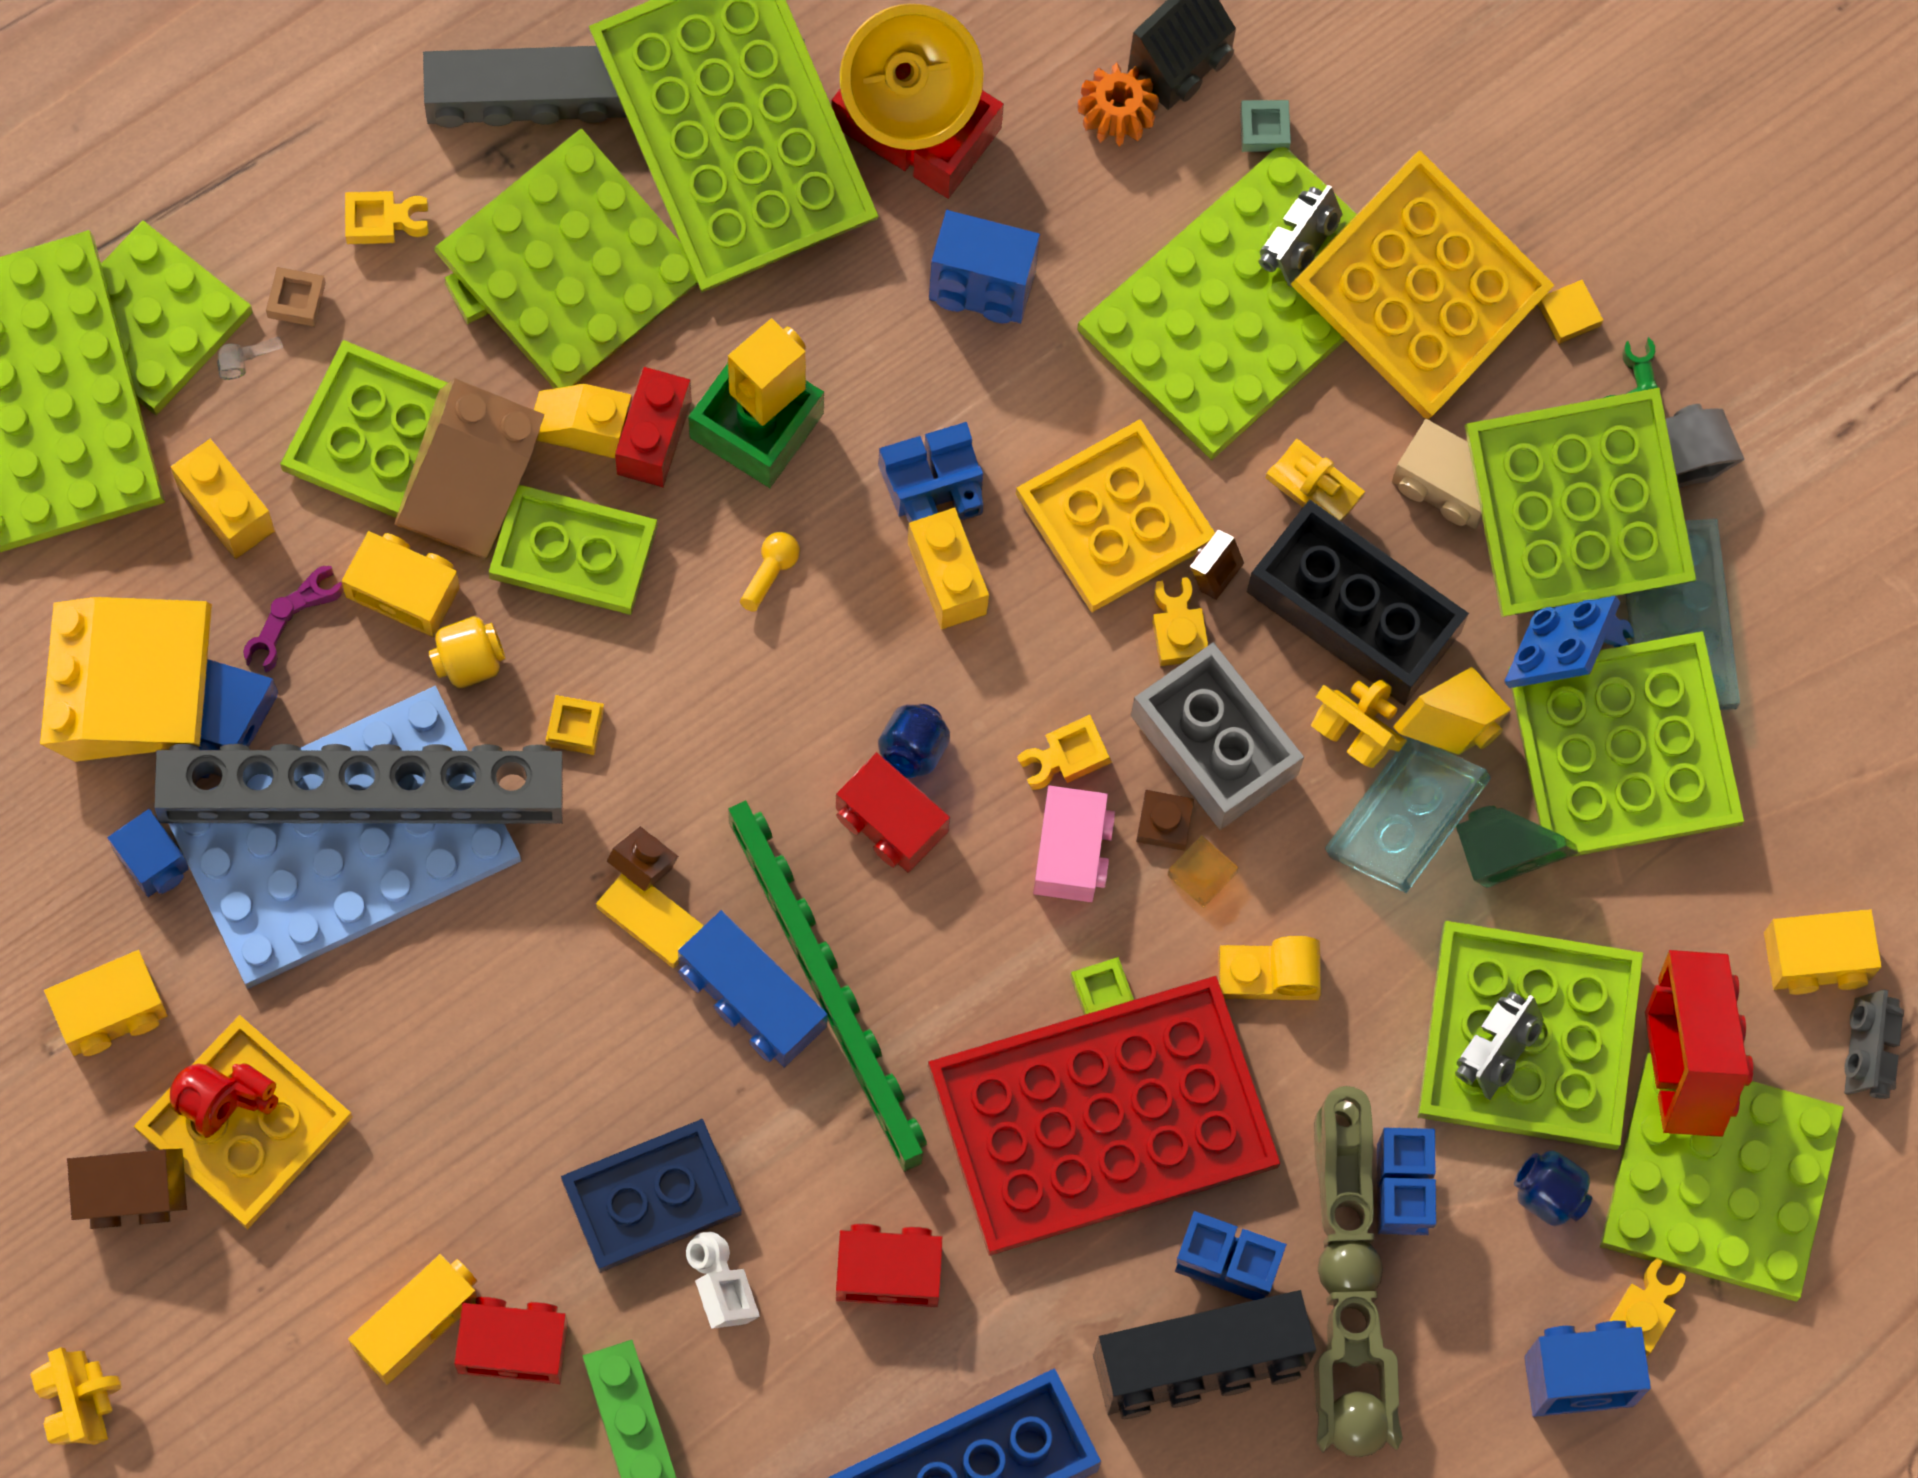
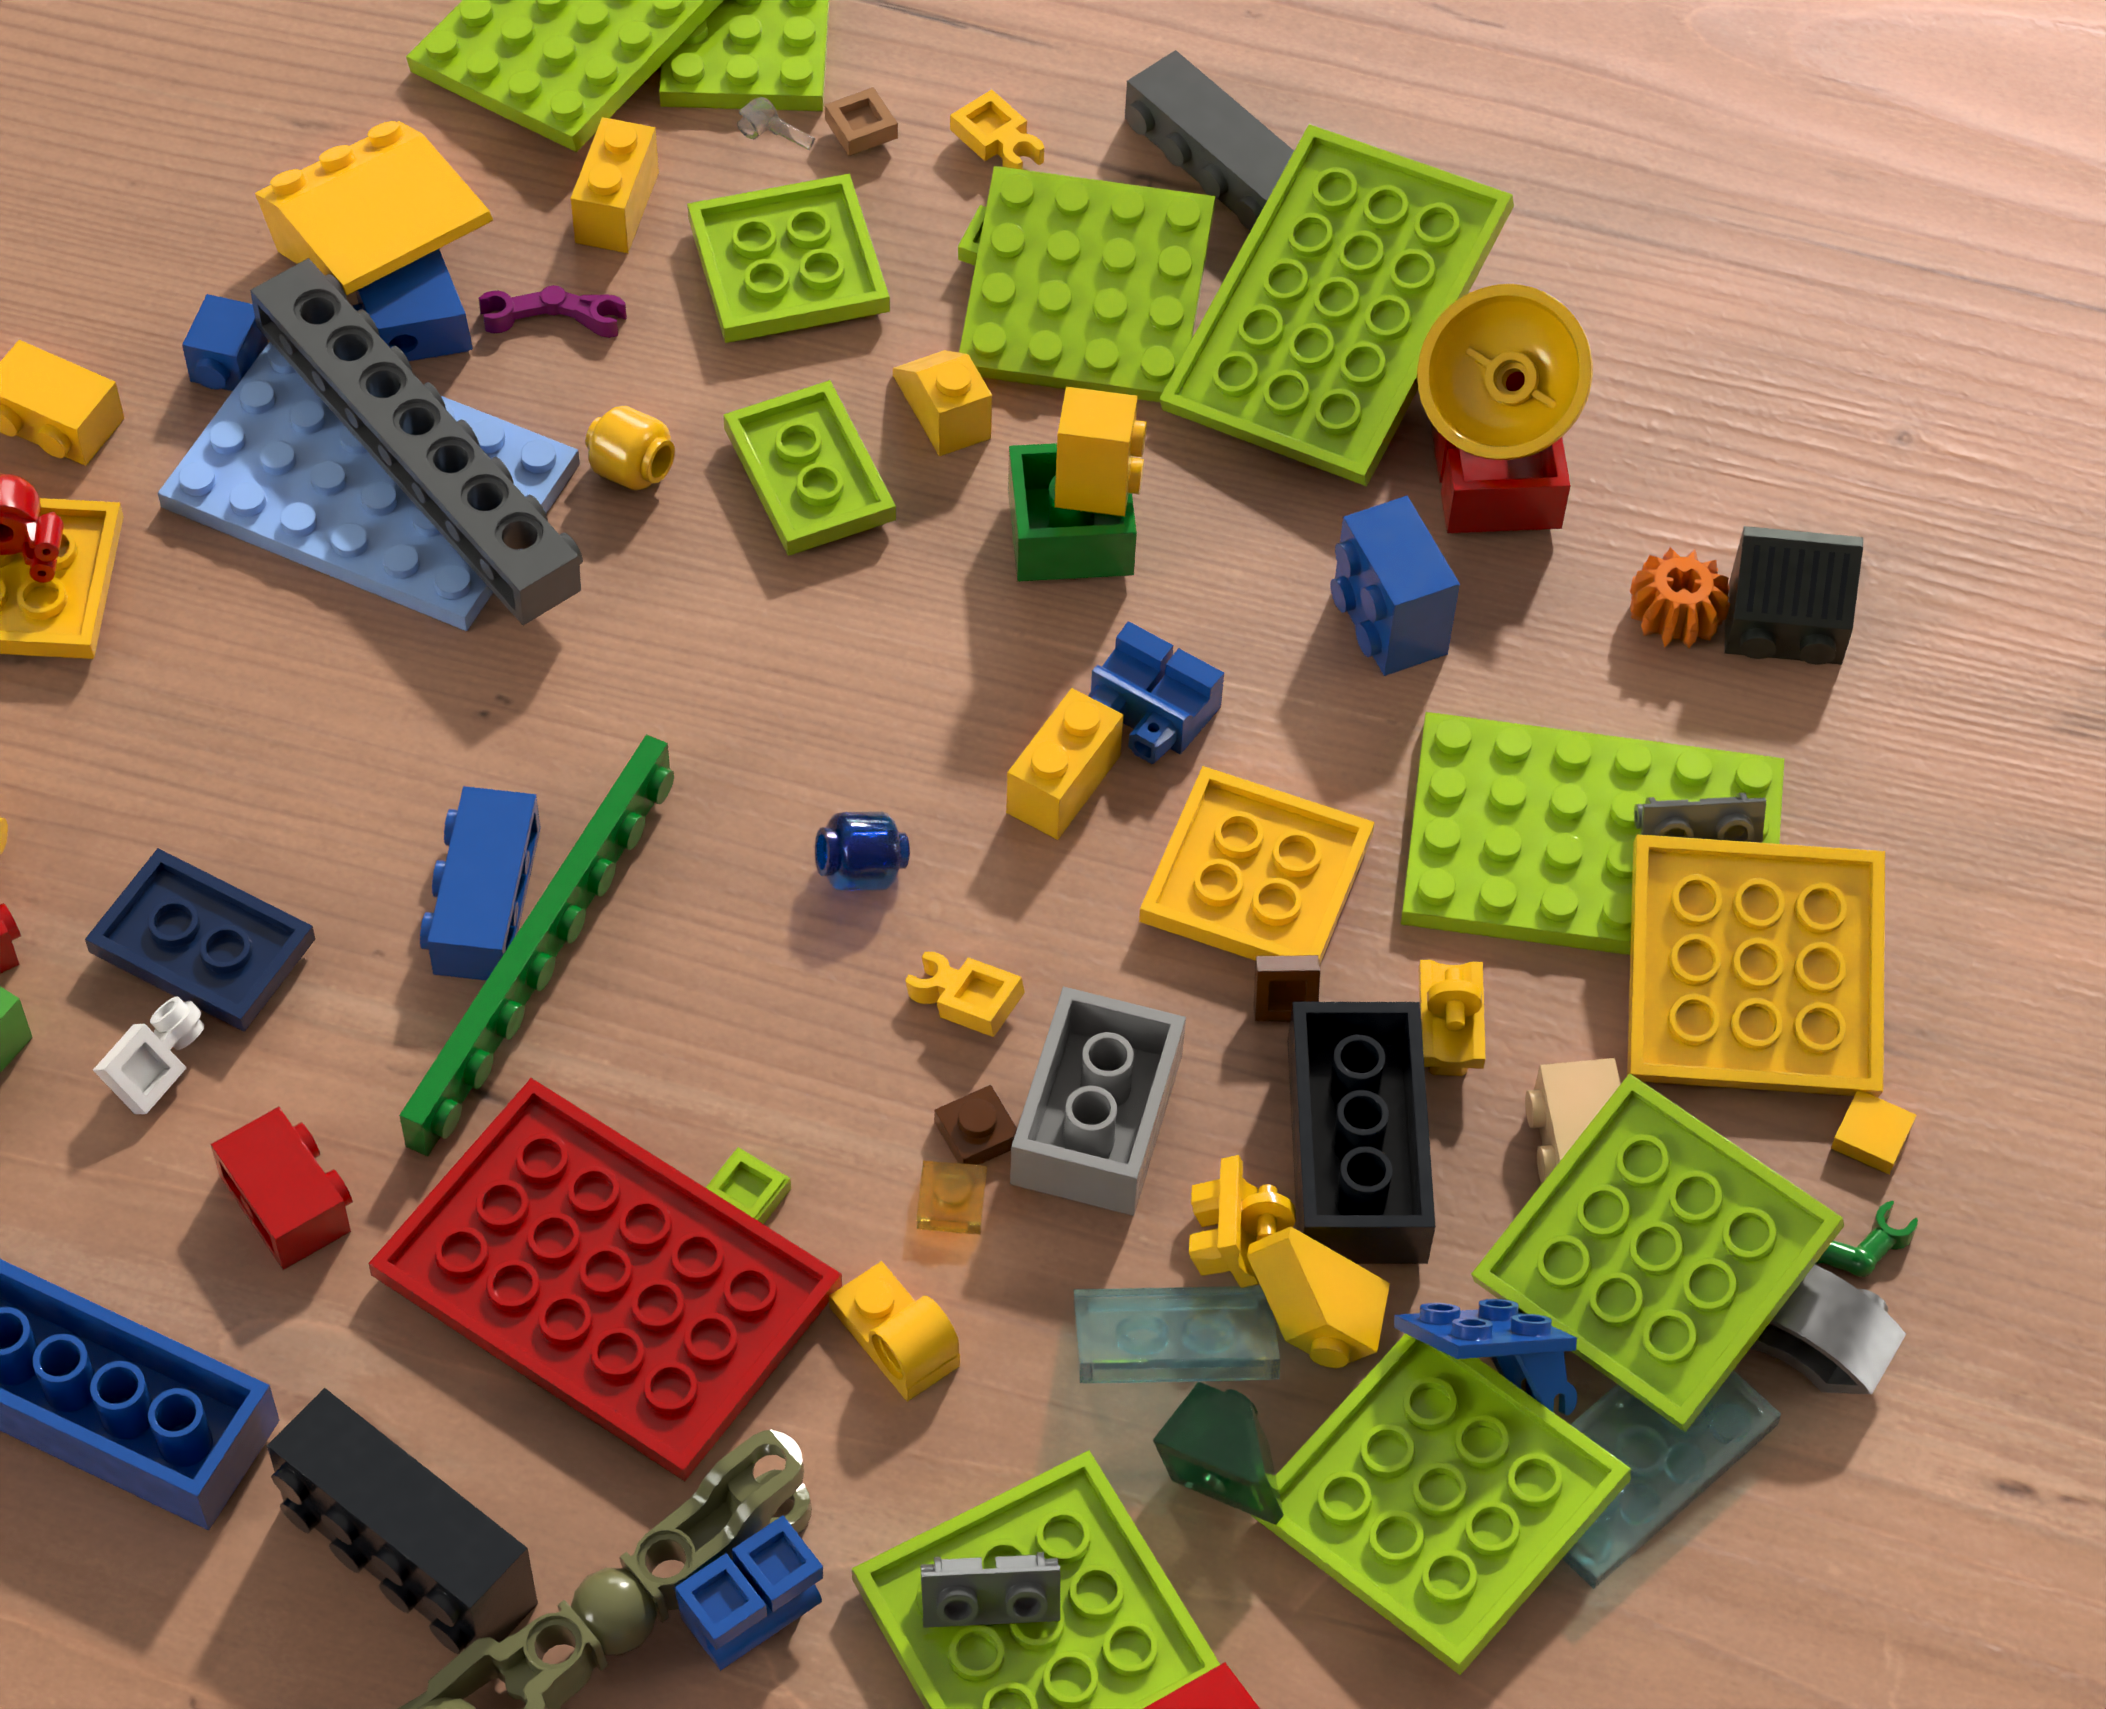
camera: 55 degrees right, 15 degrees down
(401, 582) = (654, 358): yellow brick -> none
(468, 467) = (809, 327): medium nougat slope -> none
(574, 725) = (638, 582): yellow tile -> none
(642, 858) = (544, 712): reddish brown plate -> none
(649, 918) = (494, 748): yellow tile -> none
(653, 427) = (969, 446): red brick -> none
(779, 553) = (960, 632): yellow bar -> none
(891, 814) = (768, 882): red brick -> none
(1071, 844) = (872, 1054): bright pink brick -> none
(1178, 631) = (1202, 1001): yellow plate -> none
(1227, 1262) = (527, 1474): blue hips -> none
(1264, 125) = (1787, 732): sand green plate -> none

